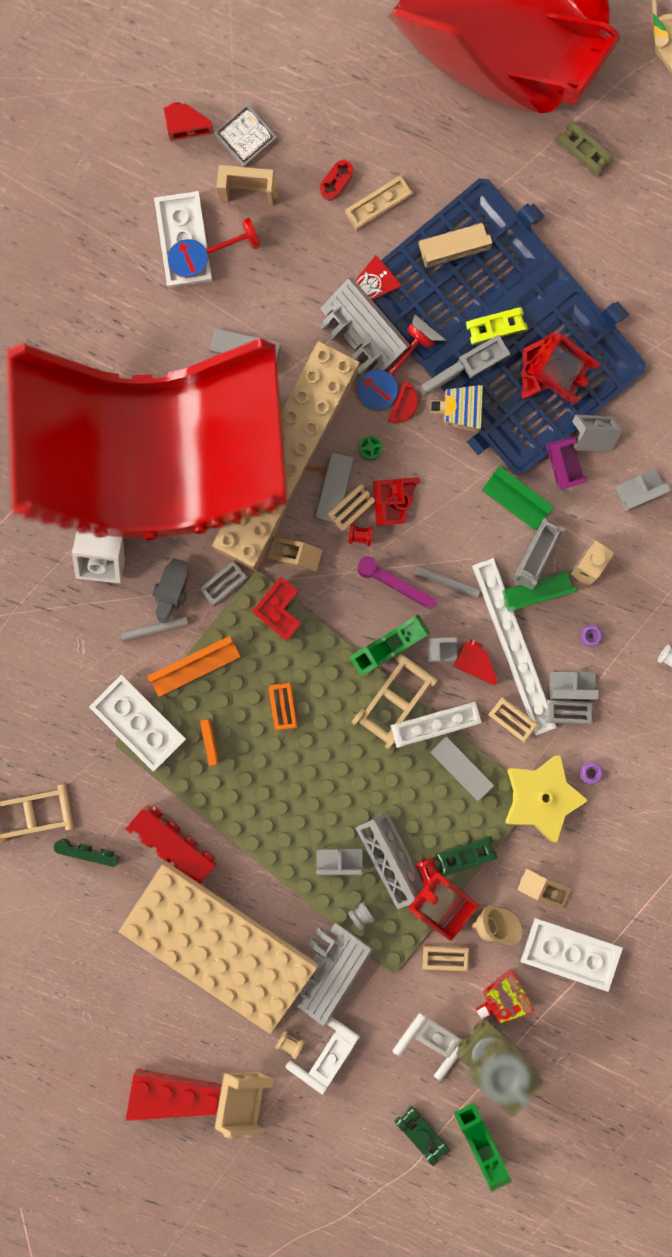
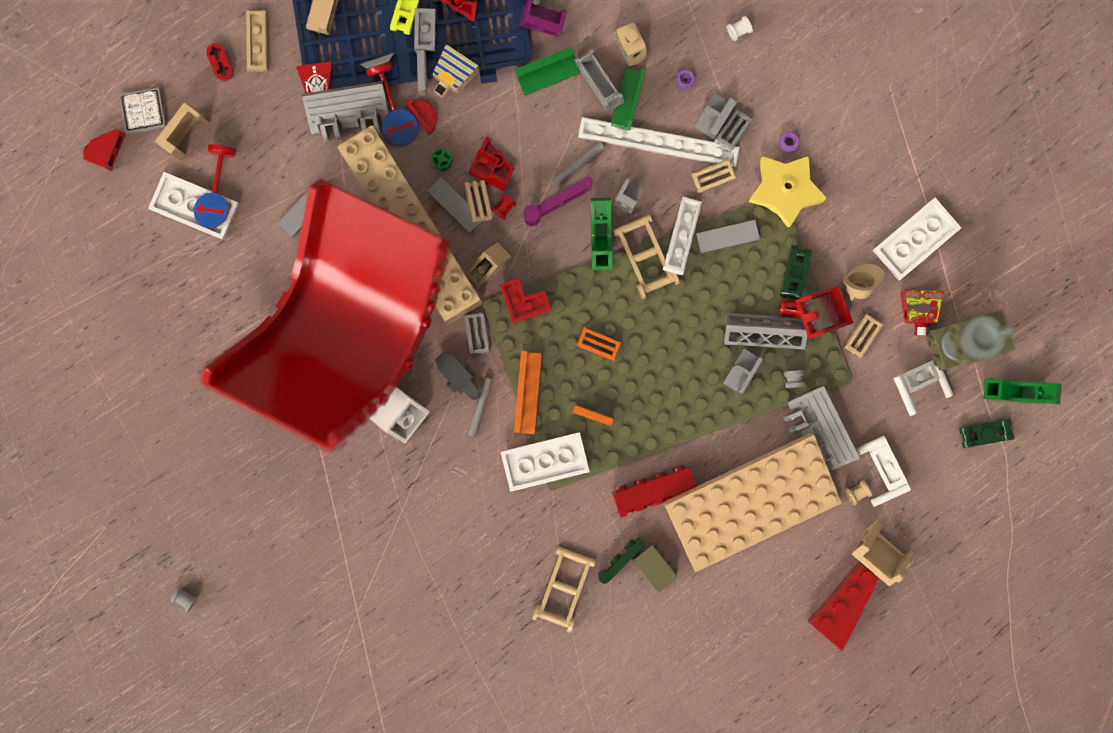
camera: 55 degrees left, 0 degrees up
(100, 890) = (655, 567): none -> olive brick
(475, 662) = (653, 177): red slope -> none
(544, 889) = (855, 229): tan slope -> none

